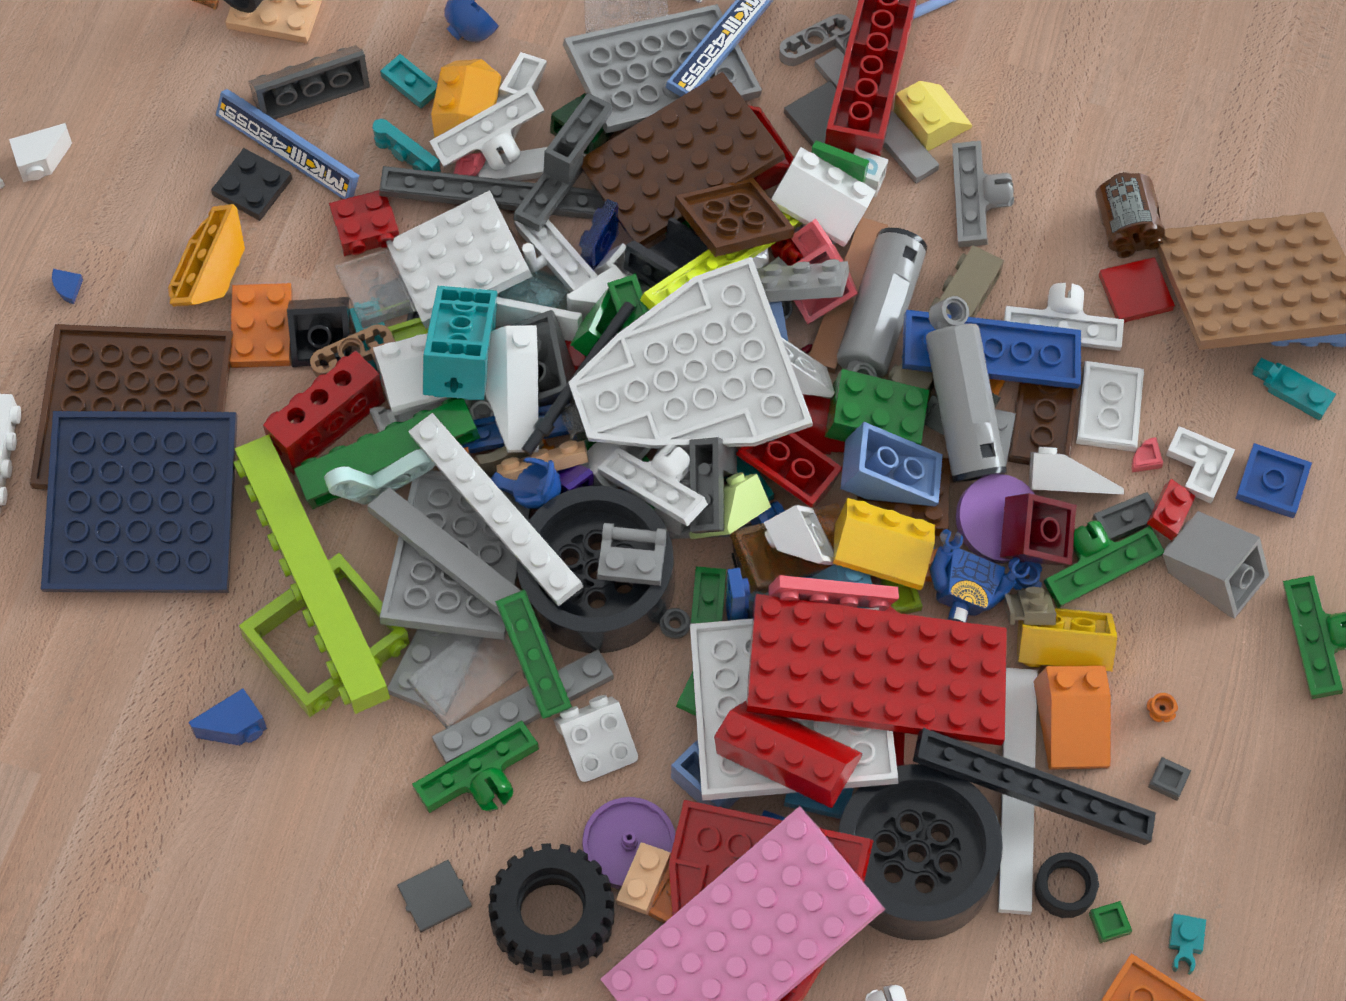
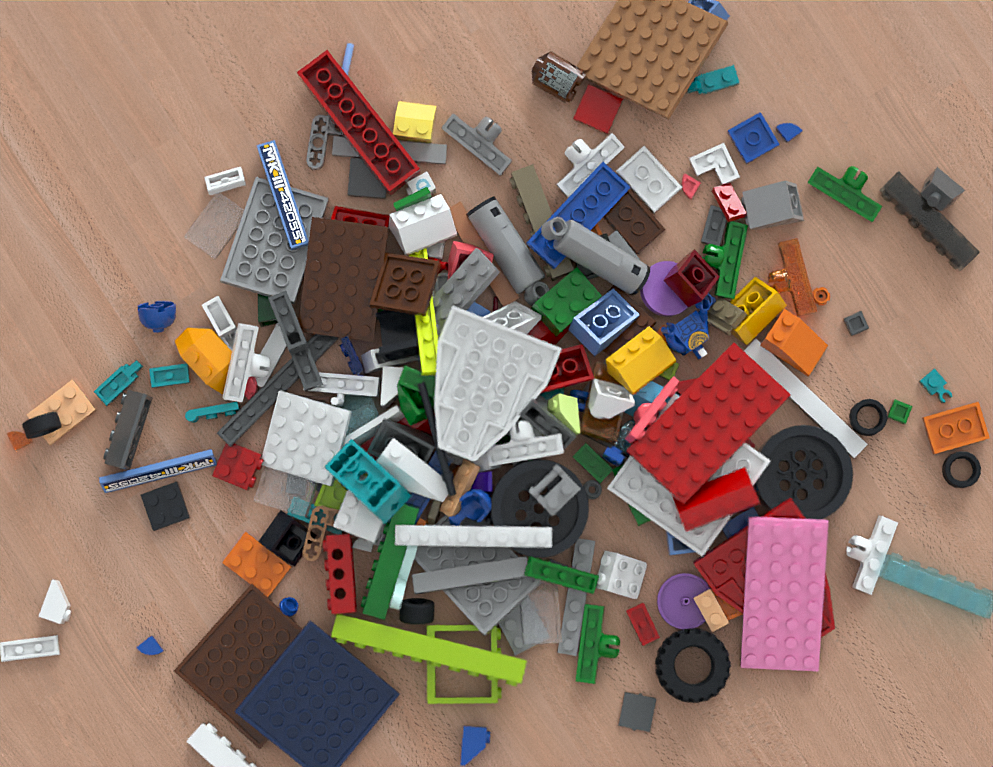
camera: 50 degrees left, 20 degrees up
(209, 259) = (199, 567): light orange wedge -> none
(237, 391) = (288, 606): none -> blue plate
(348, 531) = (416, 611): none -> black tyre
(365, 36) = (118, 382): none -> teal hinge
(555, 811) = (642, 624): none -> red plate
(810, 238) = (441, 250): coral plate -> none
(1034, 786) = (817, 396): black plate -> none
(1061, 473) = (669, 238): white slope -> none
(1152, 656) = (794, 278): none -> clear orange plate
(1322, 516) = (788, 131): none -> blue tile

